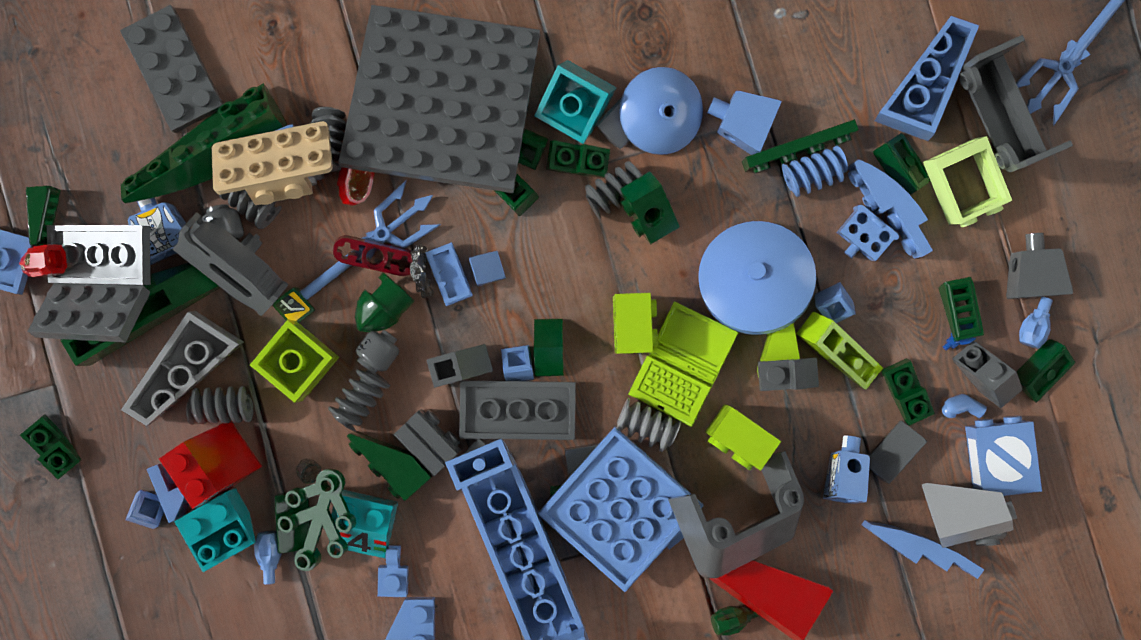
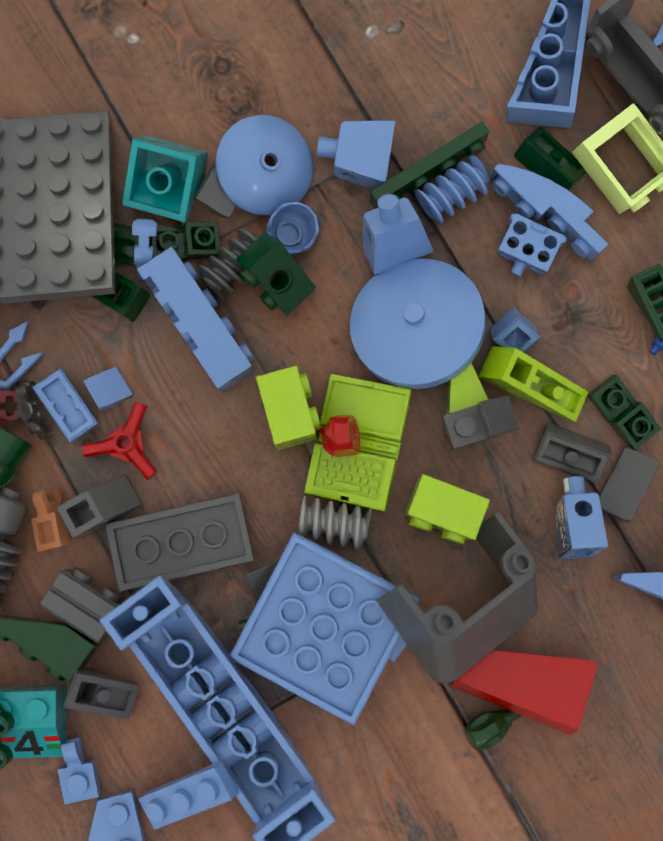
camera: 10 degrees left, 5 degrees down
(415, 371) = (49, 527): none -> nougat plate
(427, 517) = (101, 694): none -> dark grey slope
(479, 614) = (188, 795): none -> medium blue plate
(491, 317) = (125, 443): none -> red piece
(517, 363) = (169, 489): medium blue slope -> none
(543, 162) = (143, 252): none -> medium blue piece
(548, 347) = (199, 462): dark green slope -> none
(574, 230) = (197, 320): none -> medium blue wedge
(671, 357) = (341, 436): none -> red rock
(673, 170) = (294, 226): none -> medium blue hair
(755, 198) = (393, 234): none -> medium blue torso
(856, 414) = (572, 452): none -> dark grey slope

